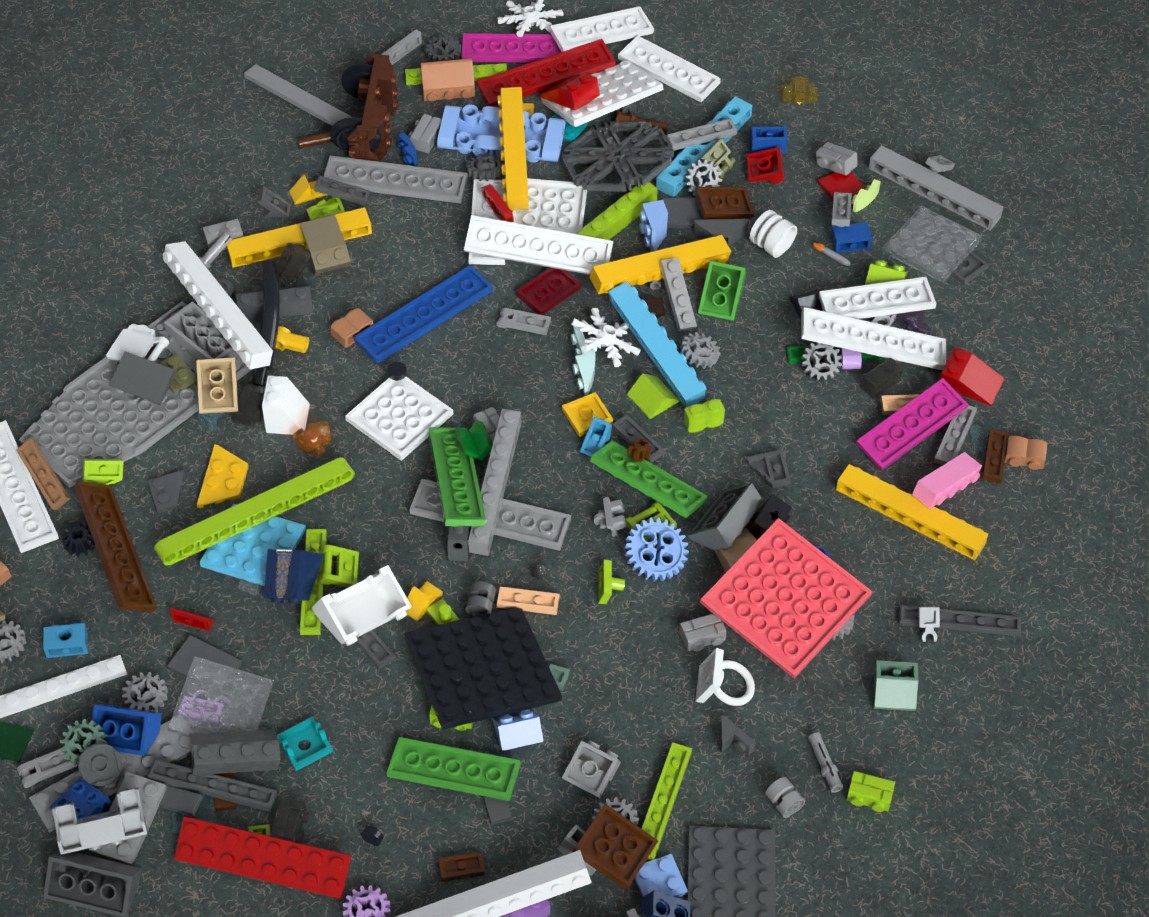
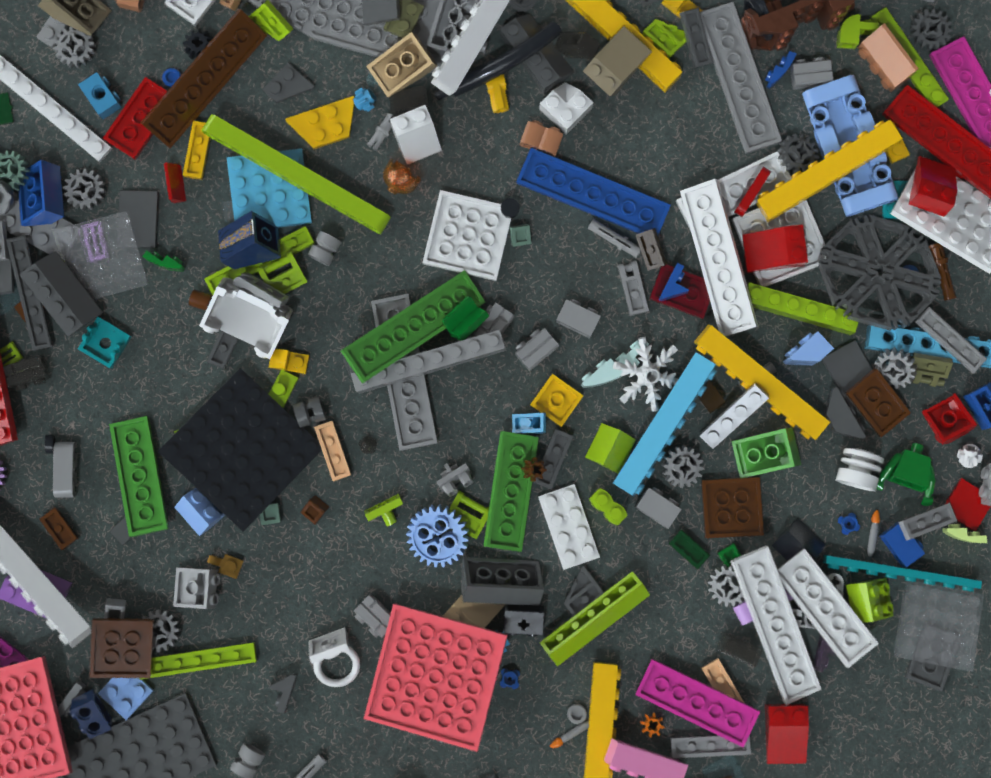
camera: 65 degrees right, 30 degrees up
(92, 578) = (170, 76): none -> blue tile
(113, 627) = (127, 131): none -> red plate
(175, 585) = (196, 152): none -> yellow plate
(224, 435) = (364, 99): none -> dark azure gear
(262, 437) = (381, 133): none -> light grey pin
(267, 653) = (168, 263): none -> green slope
(318, 643) = (200, 299): none -> reddish brown beam
(336, 297) = (566, 106): none -> white slope
(337, 523) = (325, 247): none -> light grey wheel
(343, 582) = (261, 290): none -> light grey plate
(404, 831) = (64, 469): none -> light grey beam
(410, 95) = (851, 30): none -> lime brick
(425, 377) = (520, 235): none -> sand green plate
(470, 316) = (634, 250): none -> light grey pin
(499, 290) = (651, 249): none -> plate
(525, 368) = (578, 318): none -> light grey brick
(533, 408) = (536, 349): none -> light grey brick
(540, 288) = (671, 288): none -> blue slope
(556, 206) = (775, 249): none -> red slope
(574, 642) = (314, 509): none -> reddish brown slope
(584, 732) = (228, 565): none -> pearl gold plate
(705, 455) = (568, 527): none -> white plate
(726, 382) = (657, 507): none -> light grey brick
(755, 334) = (732, 507): none -> reddish brown plate
(774, 378) = (689, 549): none -> dark green plate
(796, 204) = (912, 471): none -> green torso
(798, 465) = (594, 618): none -> lime brick
(802, 166) = (969, 456): none -> white gear
(814, 261) = (854, 526): none -> blue plate
(876, 520) = (576, 713): none -> light grey tile
(878, 242) = (909, 574): none -> teal plate
(893, 533) = (570, 734): none -> light grey piece
(915, 467) = (657, 725): none -> orange gear

